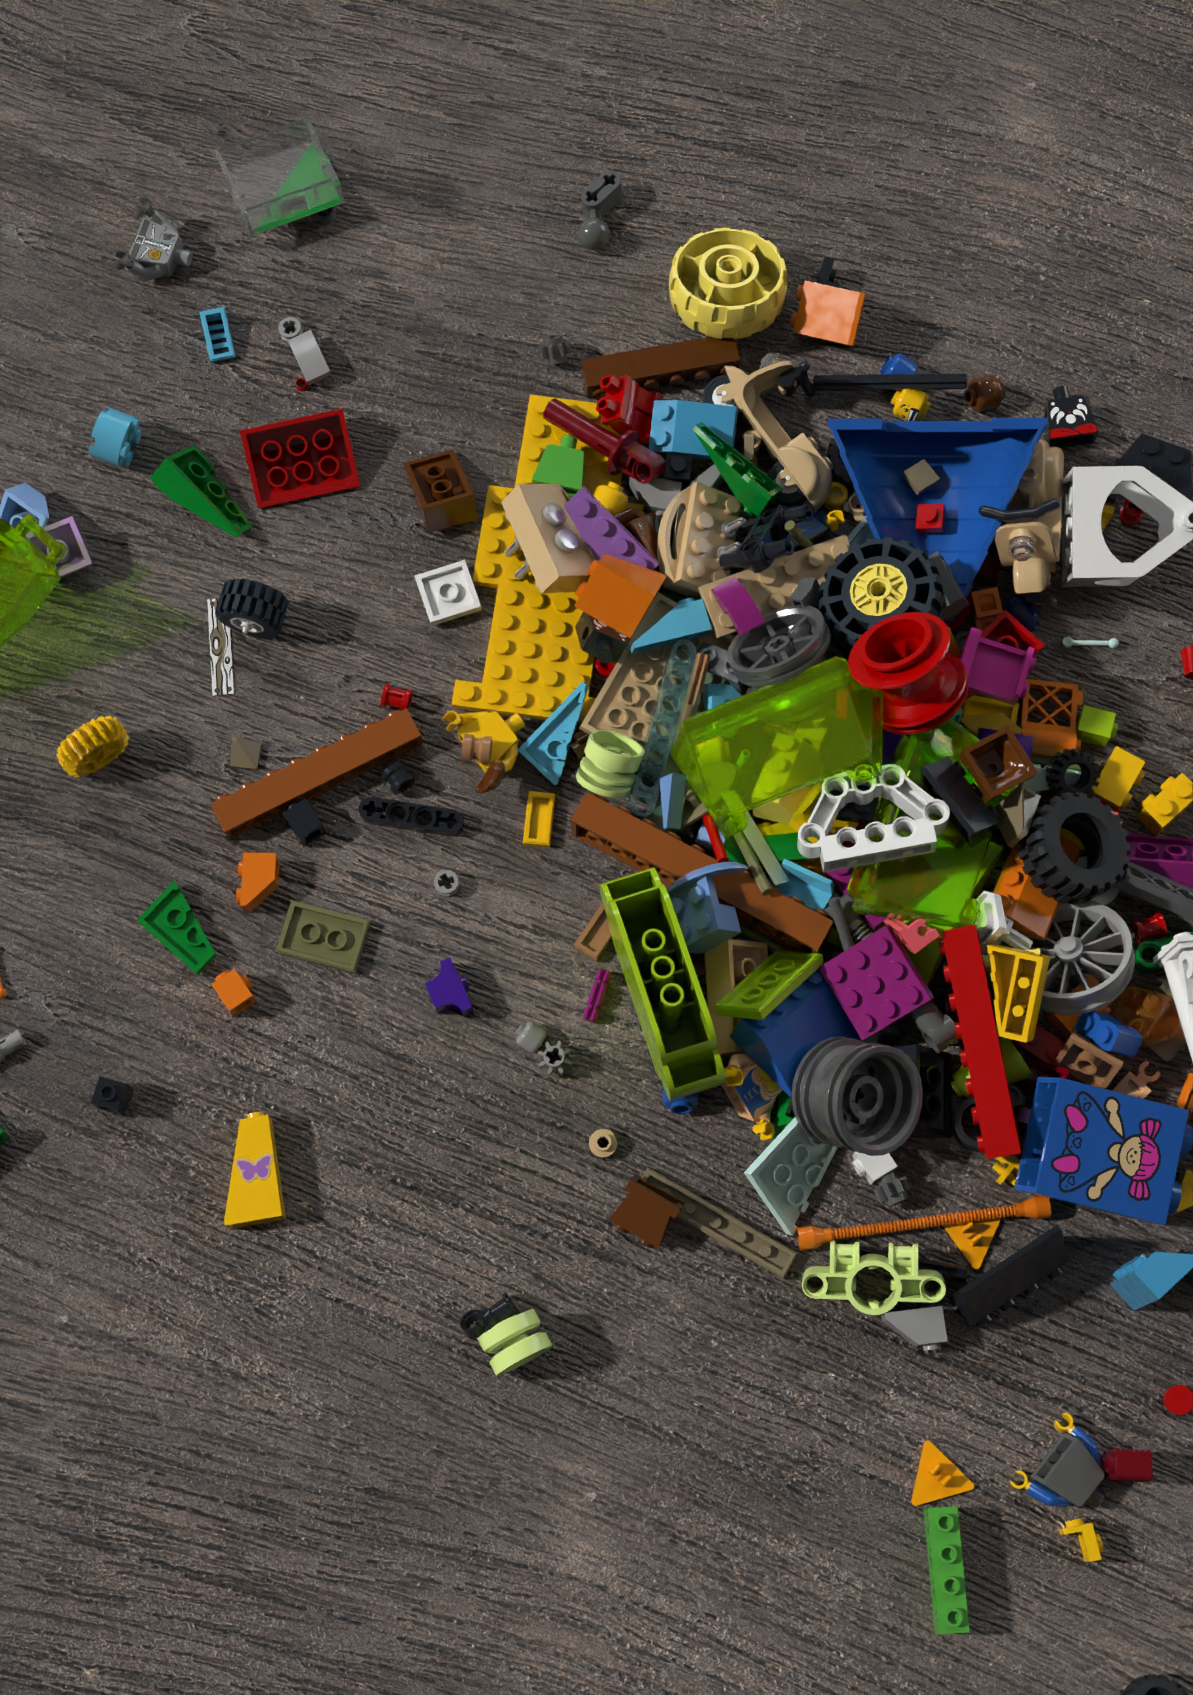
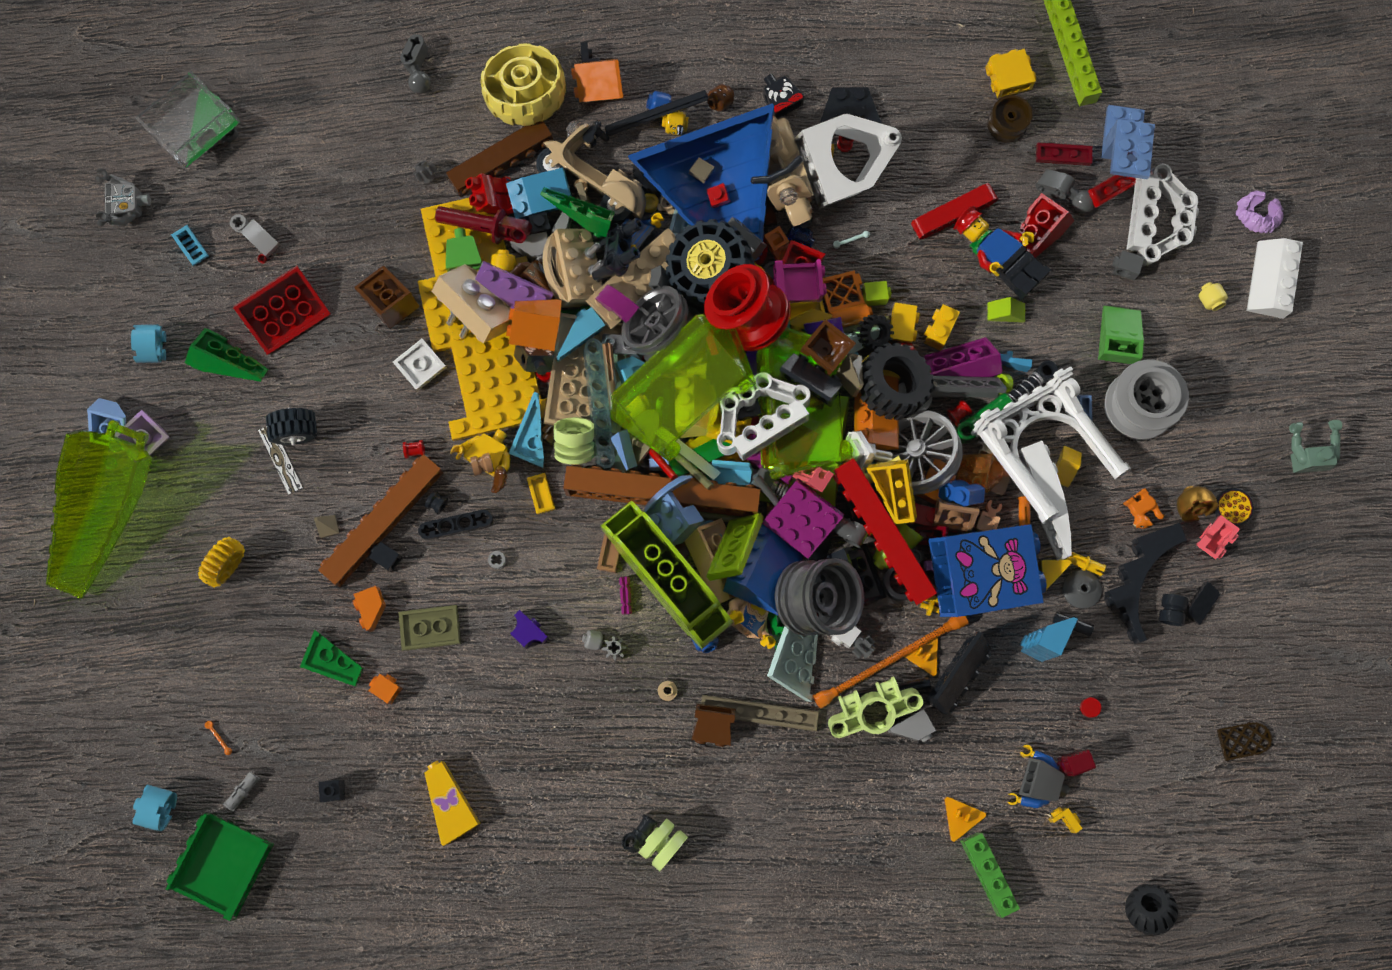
camera: 25 degrees left, 5 degrees up
(798, 535) = (638, 240): olive bar -> none

